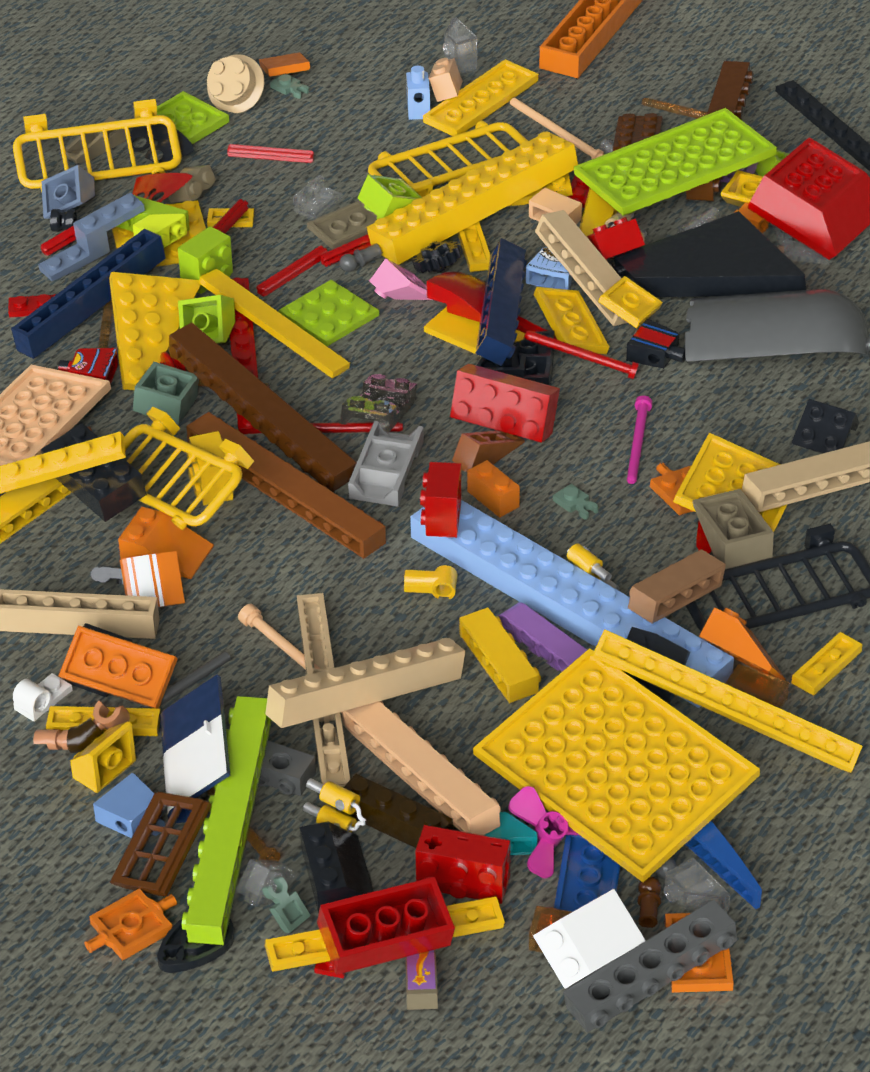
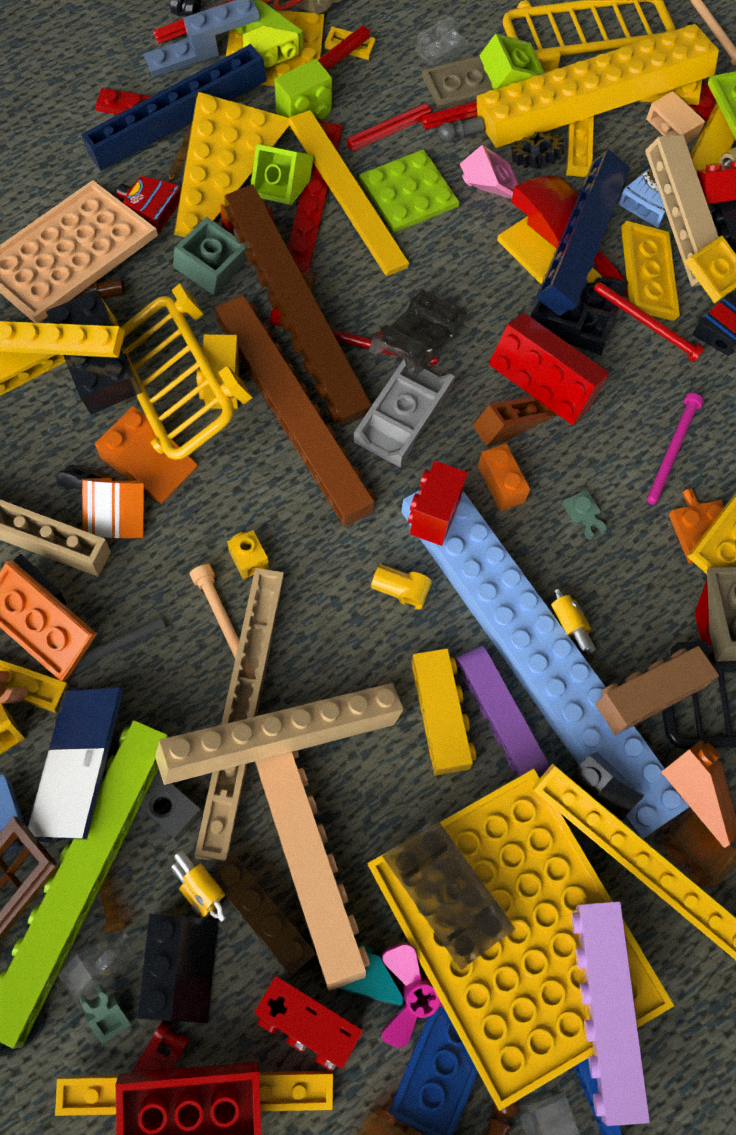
camera: 10 degrees right, 25 degrees up
(283, 589) = (247, 553): none -> yellow brick
(550, 738) = (448, 893): none -> clear smoke piece
(707, 778) = (611, 1014): none -> lavender brick

